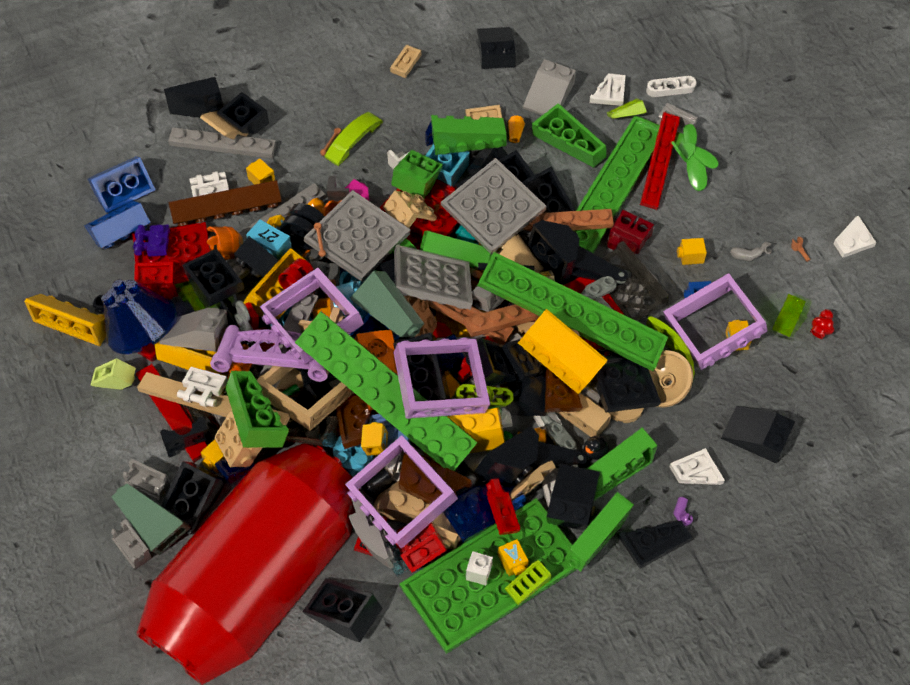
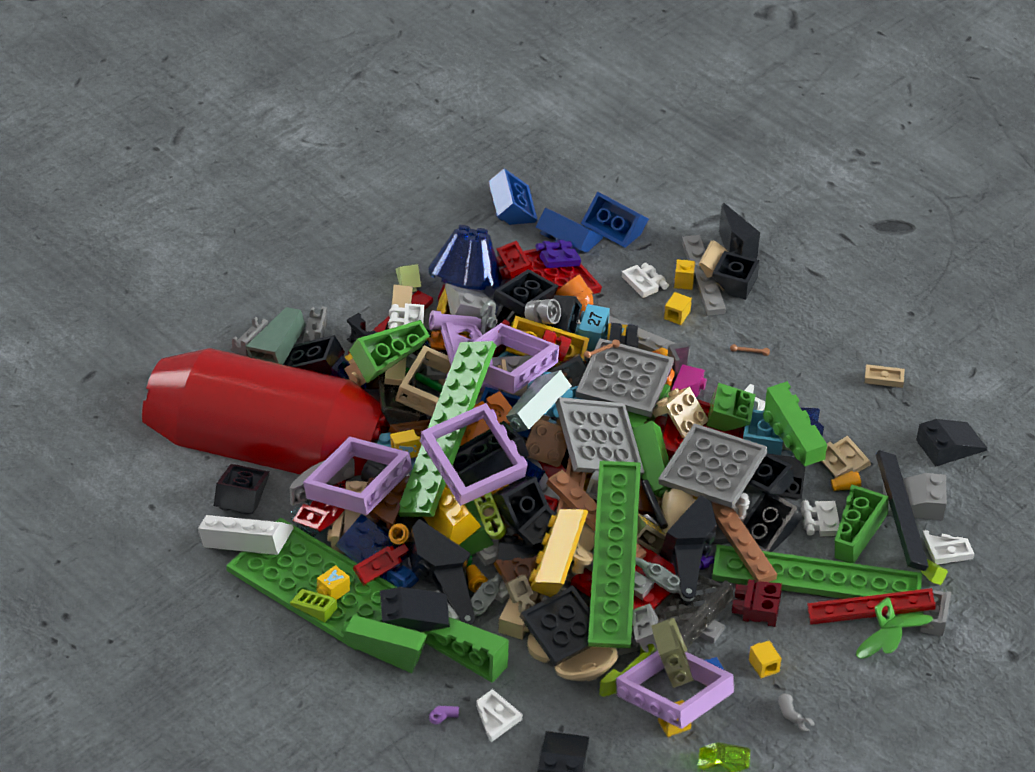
camera: 70 degrees right, 15 degrees down
(48, 256) = (512, 199): none -> blue slope
(67, 318) = (452, 215): yellow slope -> none
(221, 154) = (684, 274): none -> yellow brick
(224, 202) = (631, 293): reddish brown brick -> none
(253, 269) = (543, 311): none -> light grey wheel
(351, 136) = (765, 359): lime slope -> none
(414, 619) = (244, 534): none -> white slope
(479, 568) = (311, 561): white brick -> none
(482, 478) = (396, 532): none -> light orange cone
(532, 480) = (419, 574): tan slope -> none
(549, 157) = (826, 515): none -> white plate
(571, 101) = (902, 511): none -> black tile
(585, 402) = (519, 591): none -> dark tan plate
(596, 447) = (483, 622): black animal -> none
(652, 318) = (642, 621): none -> light grey hinge
(655, 542) = (397, 694): black wing -> none
(676, 81) = (988, 608): white beam -> none
(703, 306) = (672, 652): none -> olive window
(798, 247) = (825, 756): nougat hand -> none

